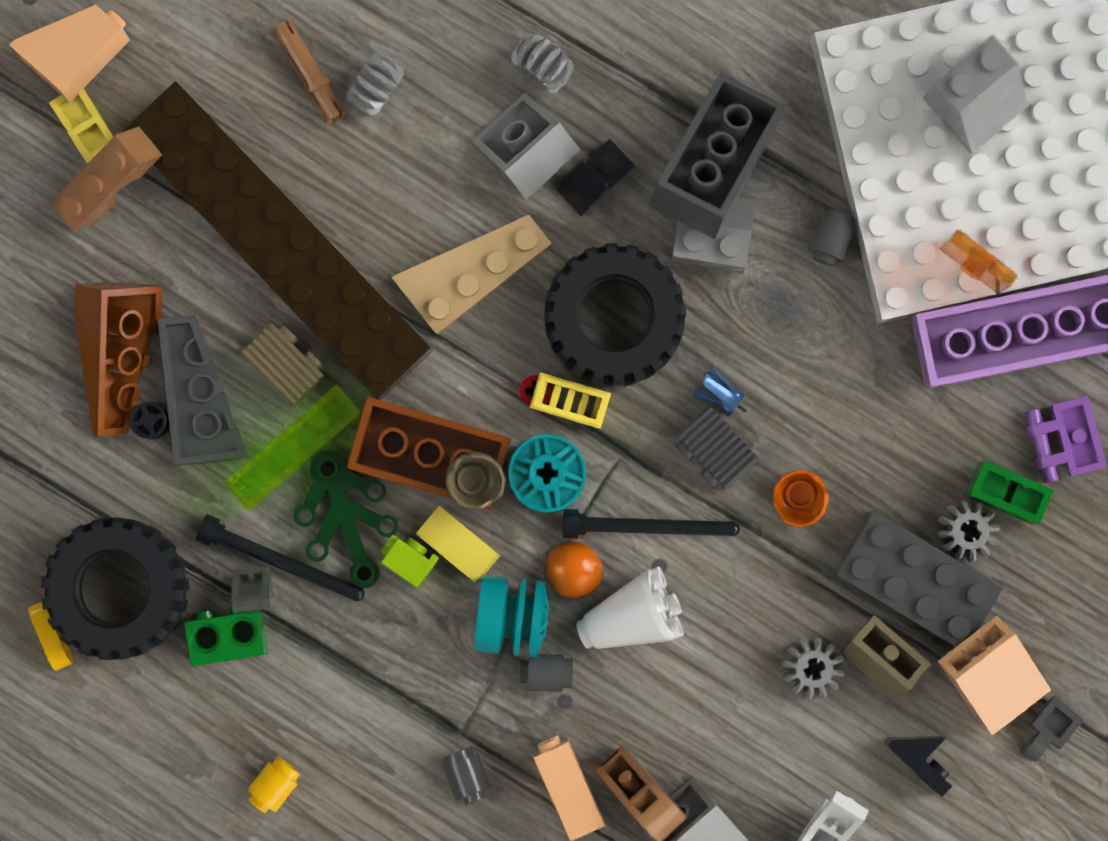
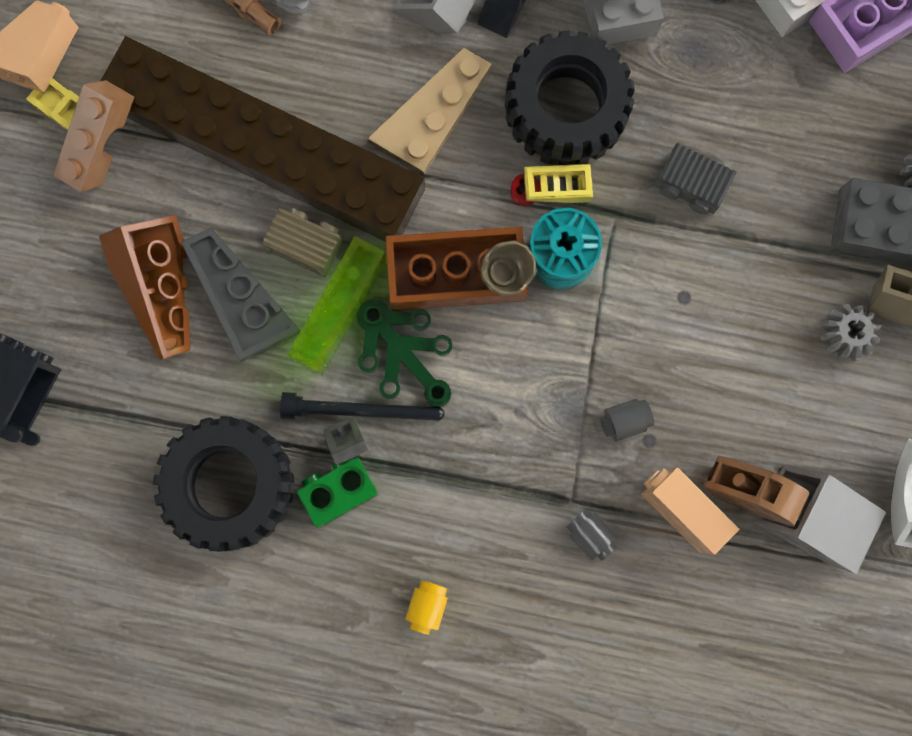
camera: 25 degrees left, 5 degrees down
(56, 650) = (189, 556): yellow beam -> none
(141, 416) = (199, 325): black wheel -> none
(408, 560) = (471, 367): lime brick -> none
(458, 544) = (508, 339): light yellow slope -> none
(510, 616) = (586, 378): teal wheel -> none
(573, 569) = (614, 325): orange hair -> none
(578, 524) = (602, 285): black piece -> none
(633, 615) = (683, 342): white cone -> none
(723, 393) = (689, 133): flat silver piece -> none
(800, 498) = (783, 193): orange hair -> none

